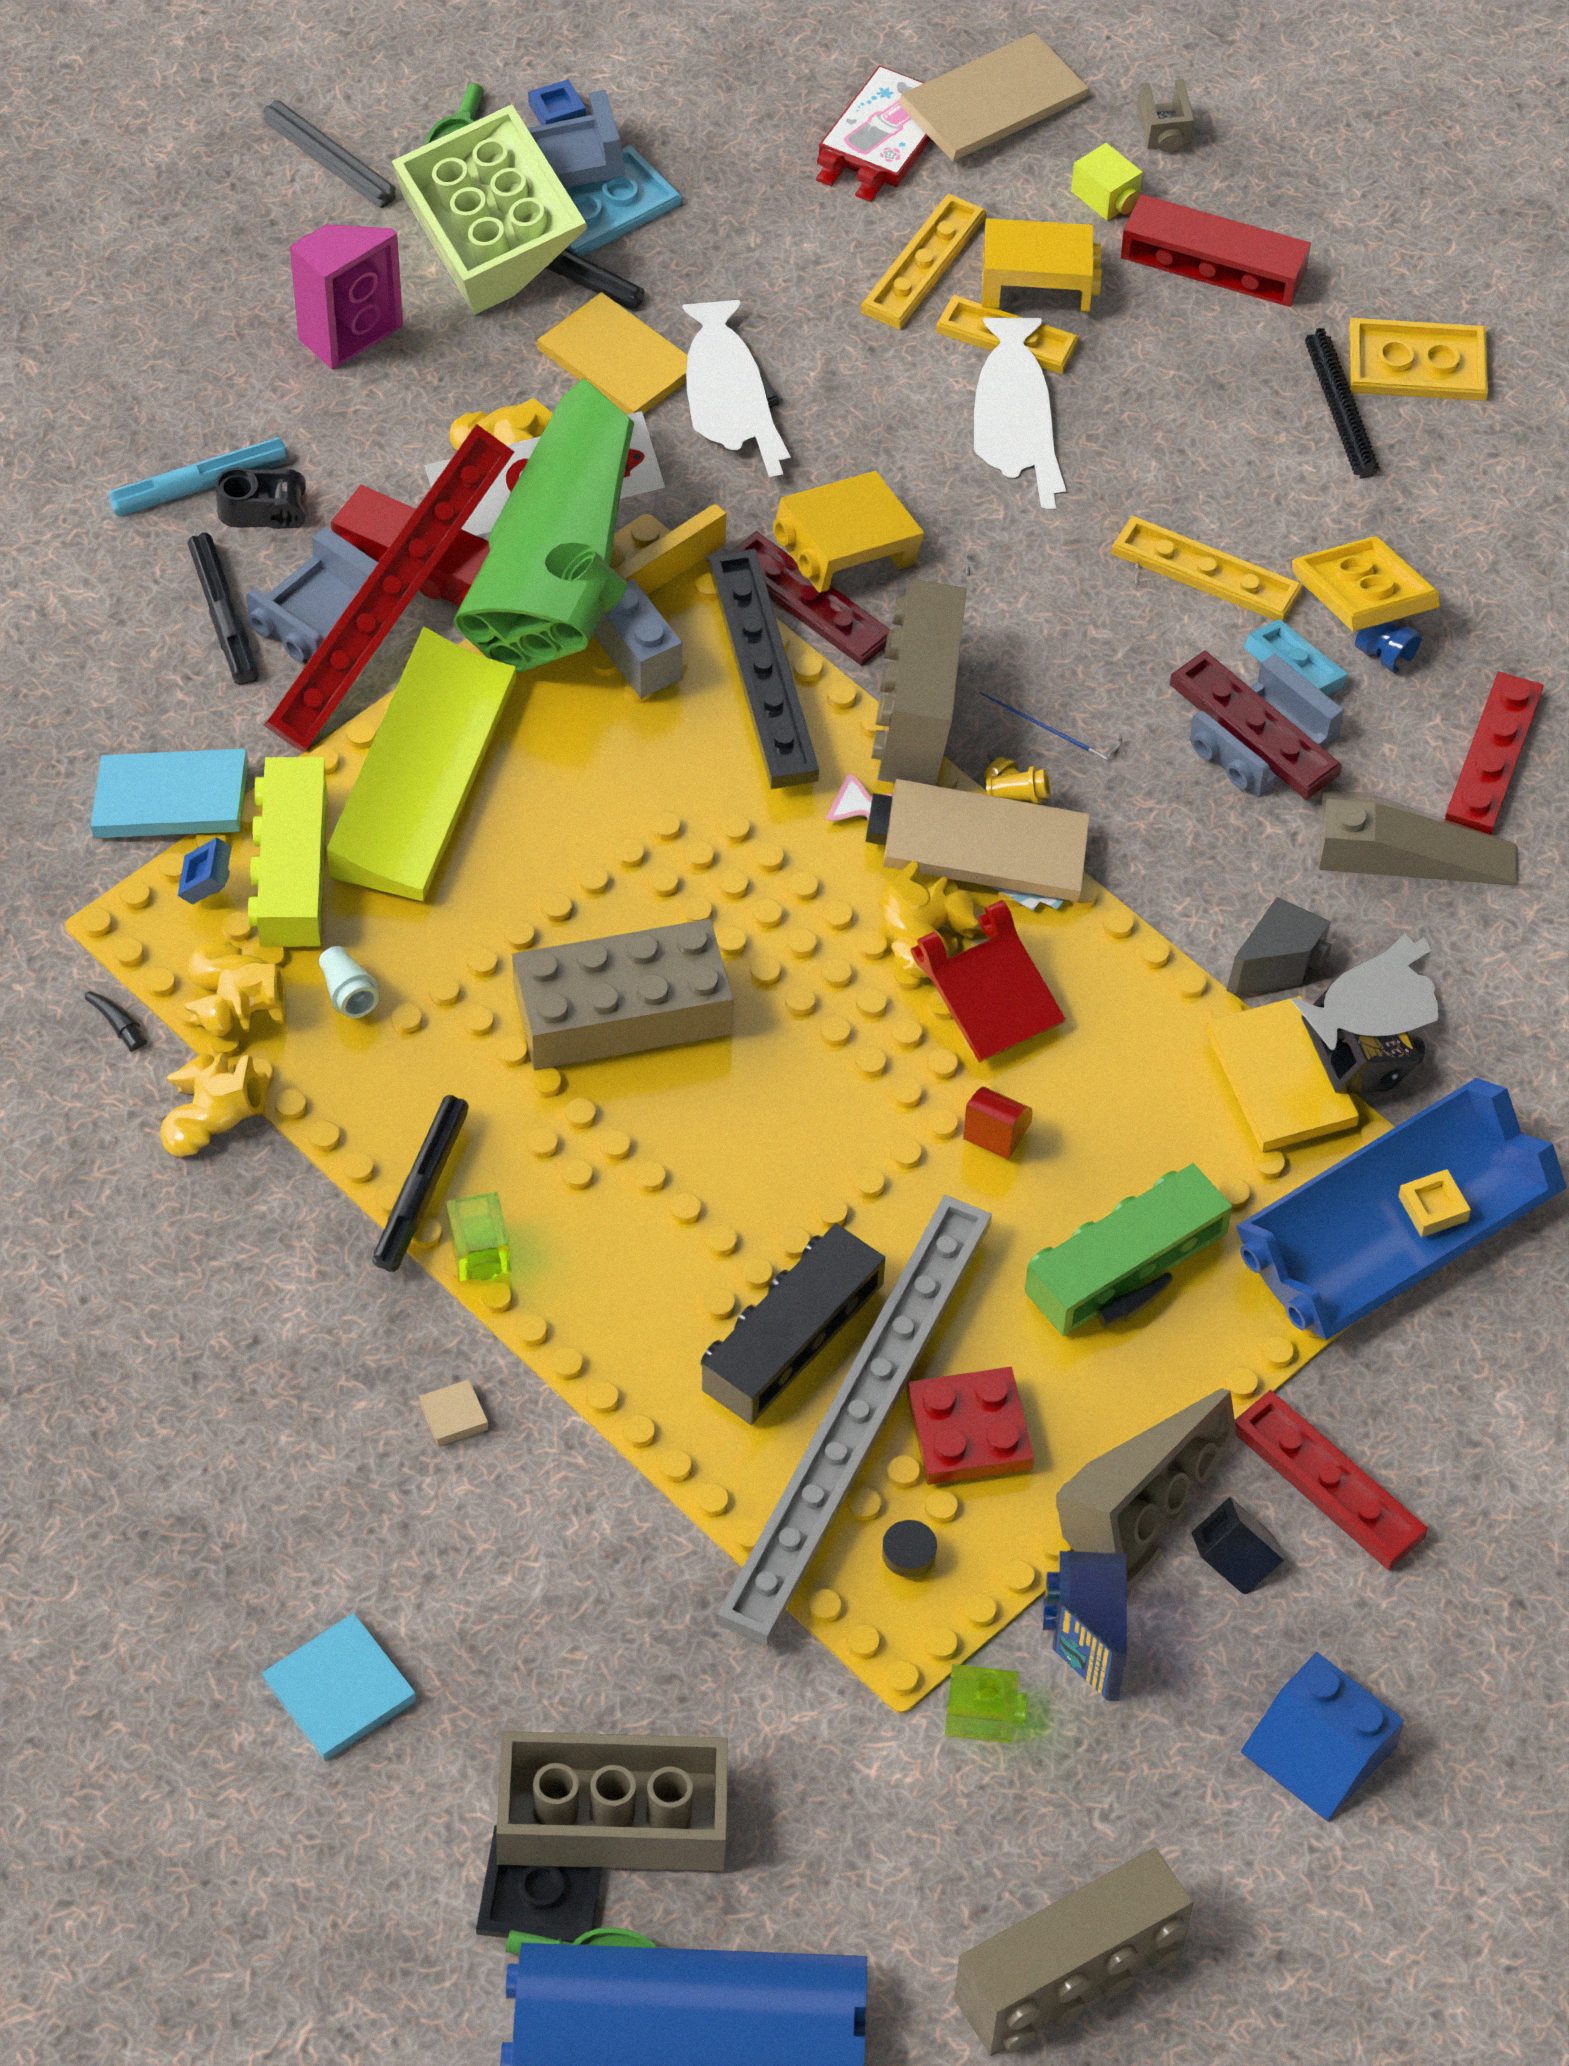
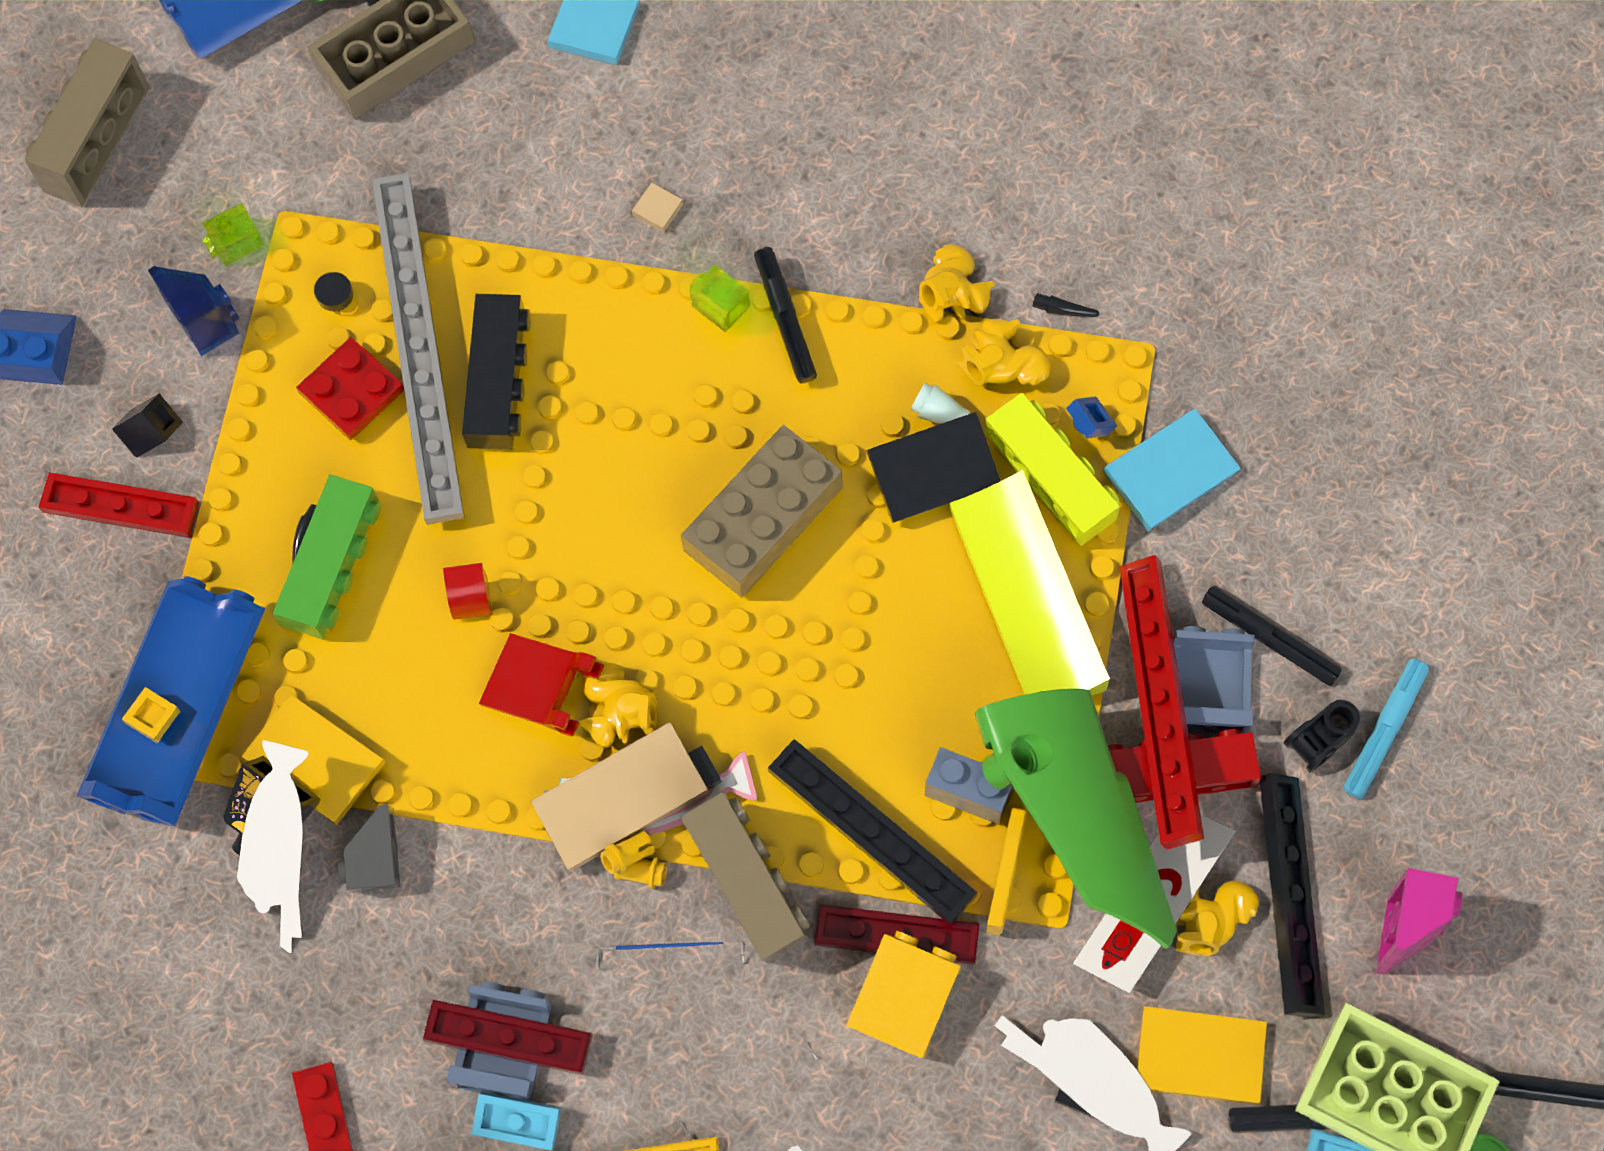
camera: 150 degrees right, 15 degrees up
(408, 926) = (933, 467): none -> black tile
(428, 398) = (1291, 896): none -> black plate
(1142, 1485) = (222, 385): dark tan wedge -> none
(1392, 839) = (353, 1018): dark tan wedge -> none

